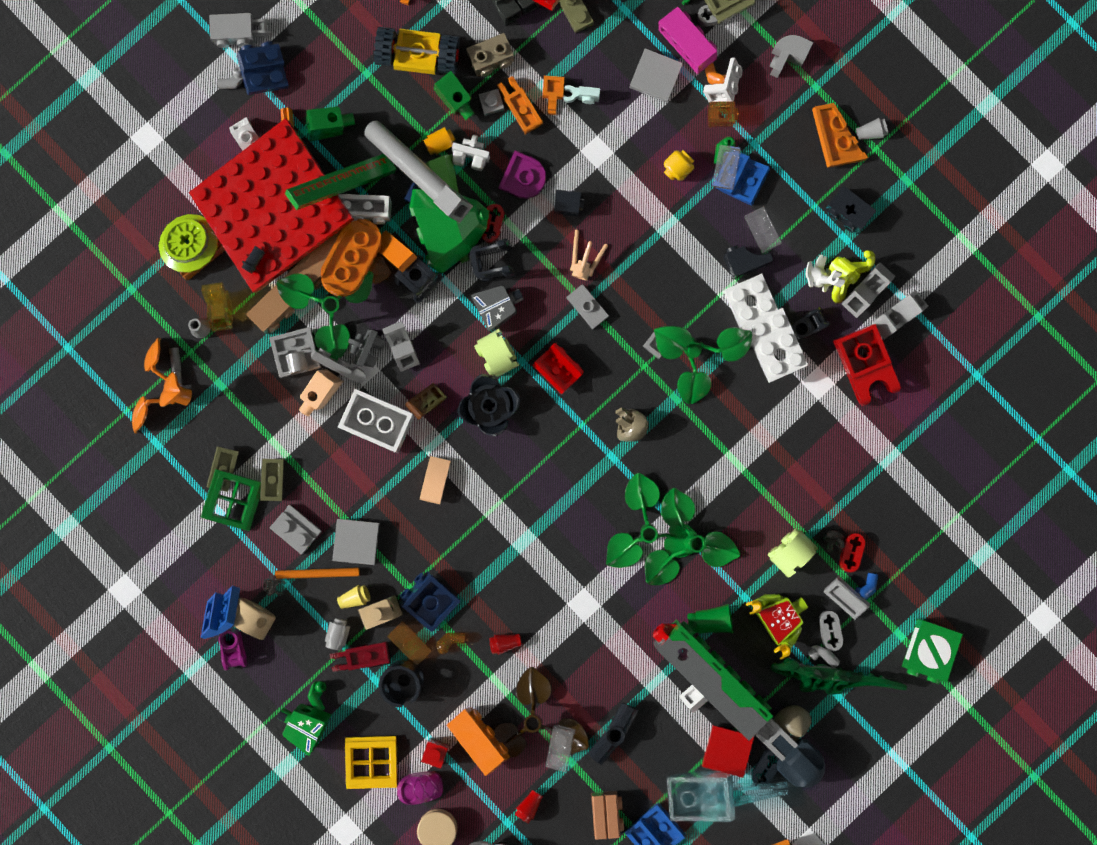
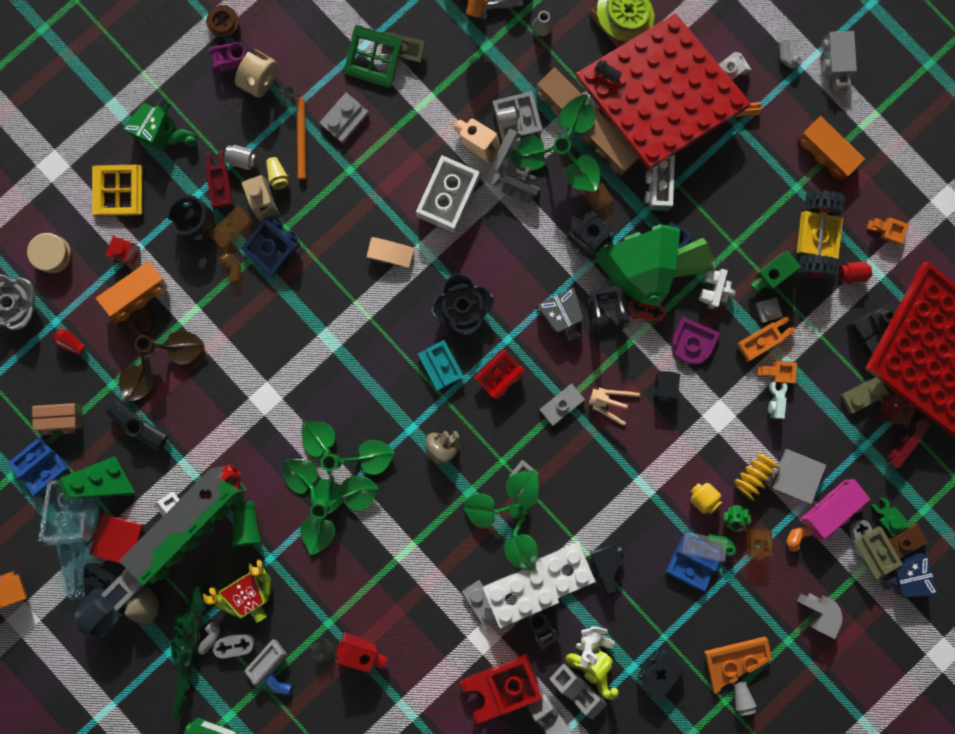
camera: 85 degrees right, 0 degrees up
(184, 656) = (225, 12): none -> reddish brown gear
(218, 306) = (562, 42): clear yellow brick -> none
(220, 612) = (262, 43): blue slope -> none
(262, 68) = (800, 83): dark blue plate -> none
(271, 480) = (392, 94): olive plate -> none
(327, 122) = (746, 146): green torso -> none
(328, 39) = (830, 149): none -> orange brick
(340, 181) = (686, 155): green tile -> none
(351, 257) = (610, 168): orange tile -> none
(355, 541) = (330, 175): light grey tile -> none
(396, 252) = (616, 211): orange tile -> none
(401, 346) = (522, 219): light grey brick -> none
(420, 787) = (90, 236): magenta piece -> none
(425, 401) = (467, 242): reddish brown plate -> none
(439, 141) = (728, 257): light orange brick -> none
(445, 197) = (670, 257): light grey brick -> none
(453, 17) = (855, 272): none -> red brick
(490, 55) = (816, 309): dark tan brick -> none
(496, 353) = (514, 313): yellowish green brick -> none
(503, 643) = (228, 319): red cone -> none
(549, 427) = (440, 365): none -> teal plate
(560, 748) = (124, 373): clear plate -> none
(656, 116) = (756, 475): none -> yellow piece
(670, 770) = (96, 480): none -> green wing
(697, 135) = (737, 518): none -> green gear
(726, 91) = (782, 547): white bracket -> none
(762, 229) = (640, 583): clear plate -> none
(784, 386) = (477, 599): none -> light grey plate
(793, 552) = (310, 608): yellowish green brick -> none
(835, 505) = (351, 651): none -> red torso
(847, 551) = (310, 674): red beam -> none

